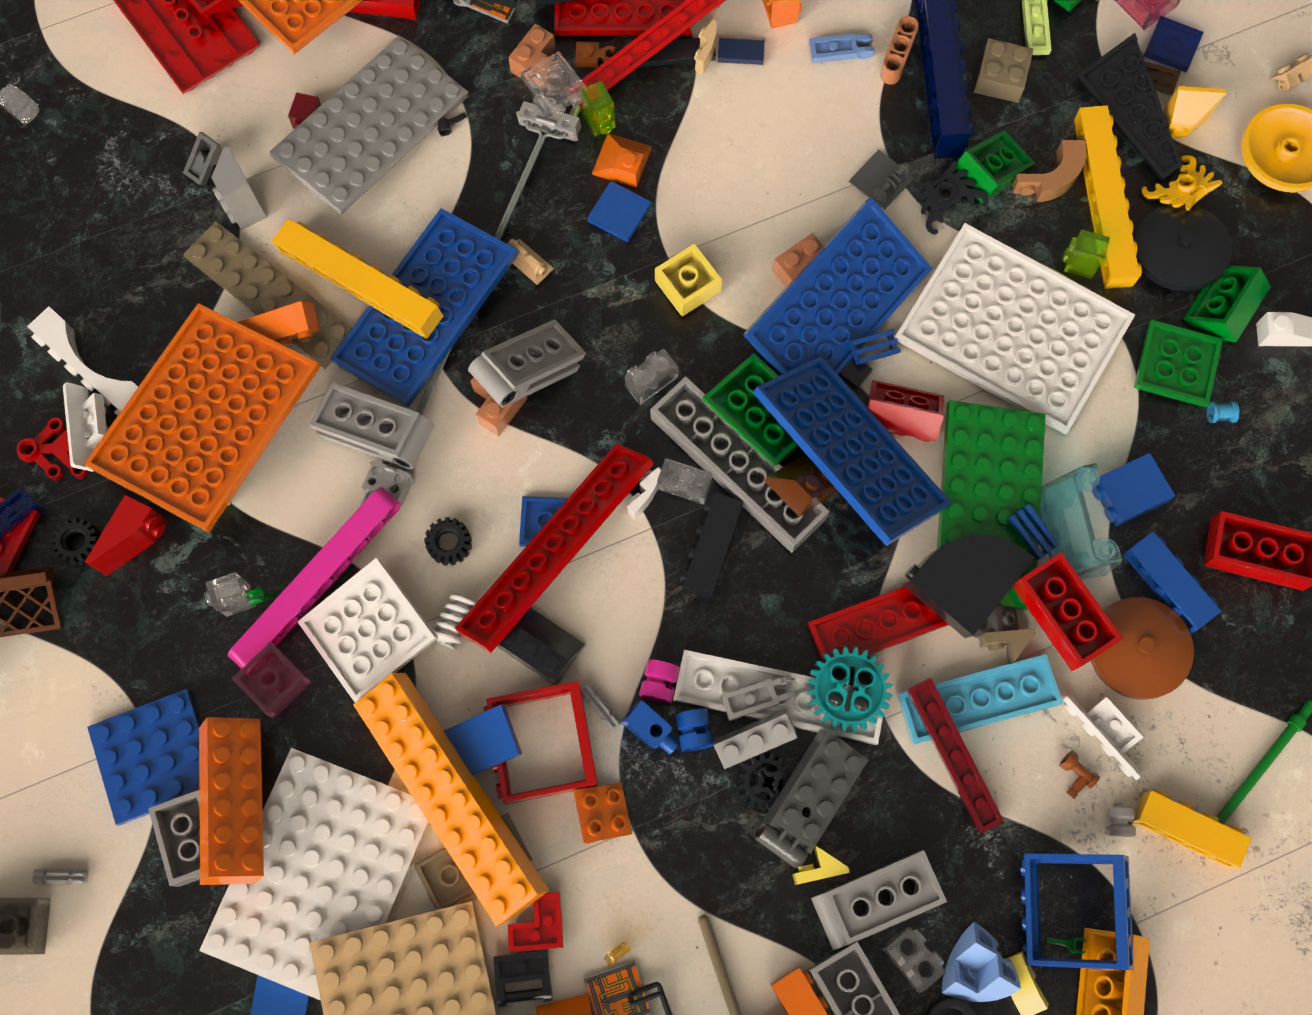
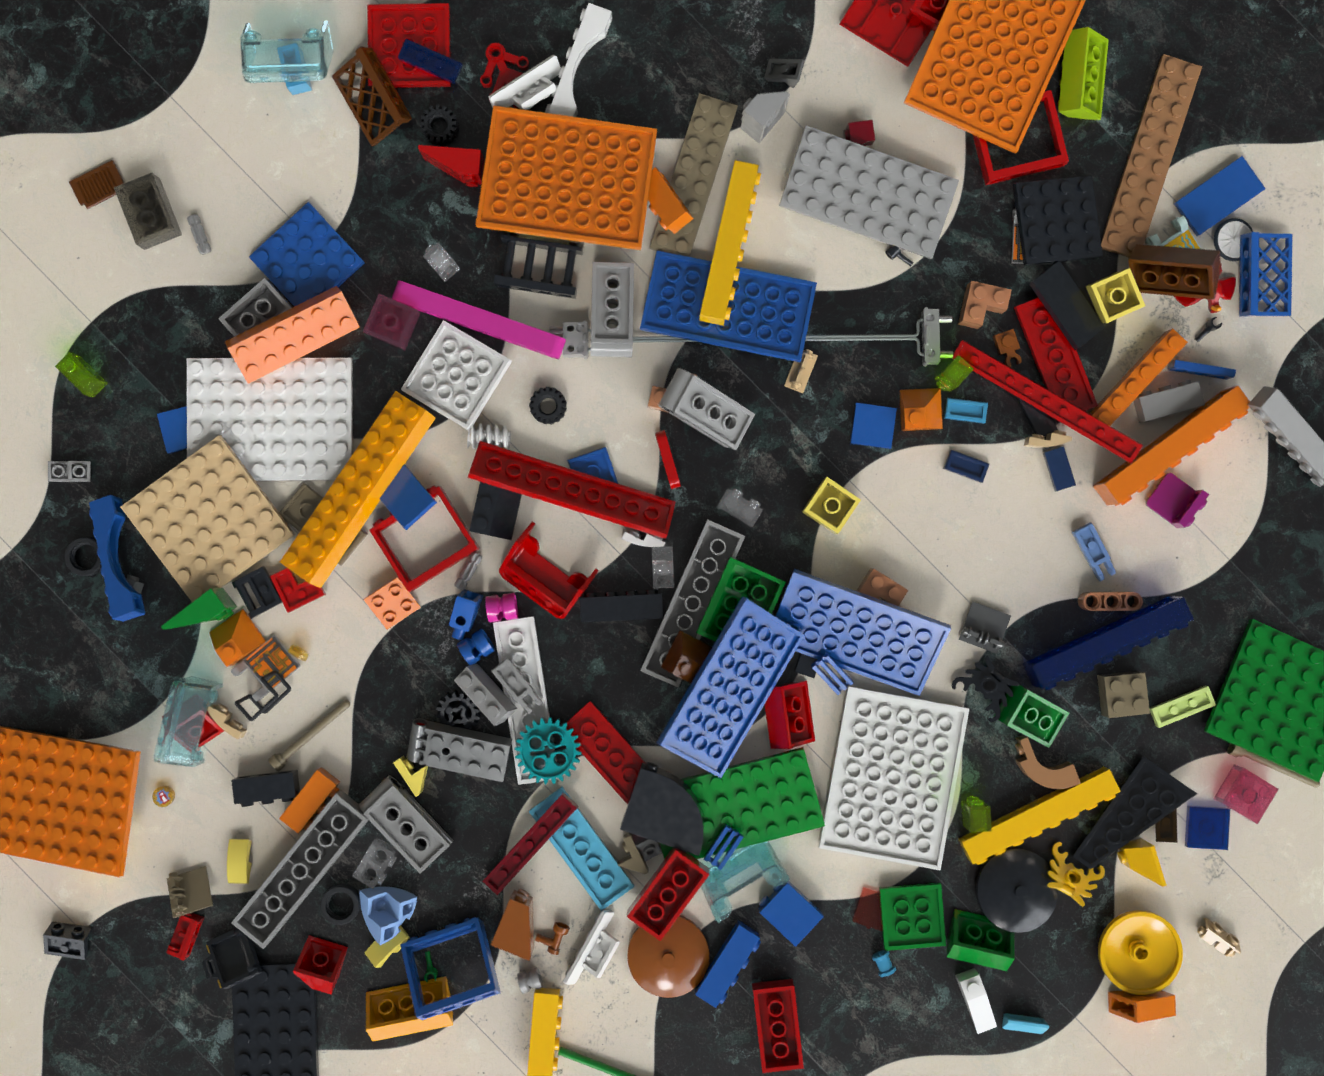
camera: 70 degrees right, 15 degrees up
(257, 595) = (449, 283): green hand -> none
(299, 512) = (526, 283): none -> black fence
(553, 85) = (957, 330): clear plate -> none
(565, 433) = (667, 459): none -> red beam
(641, 117) = (965, 410): none -> dark azure tile
(648, 623) = (542, 579): none -> red windscreen
(701, 137) = (966, 466): none -> dark blue tile
(1049, 809) = (516, 927): none -> dark orange slope
(1155, 408) = (868, 910): none -> clear red piece

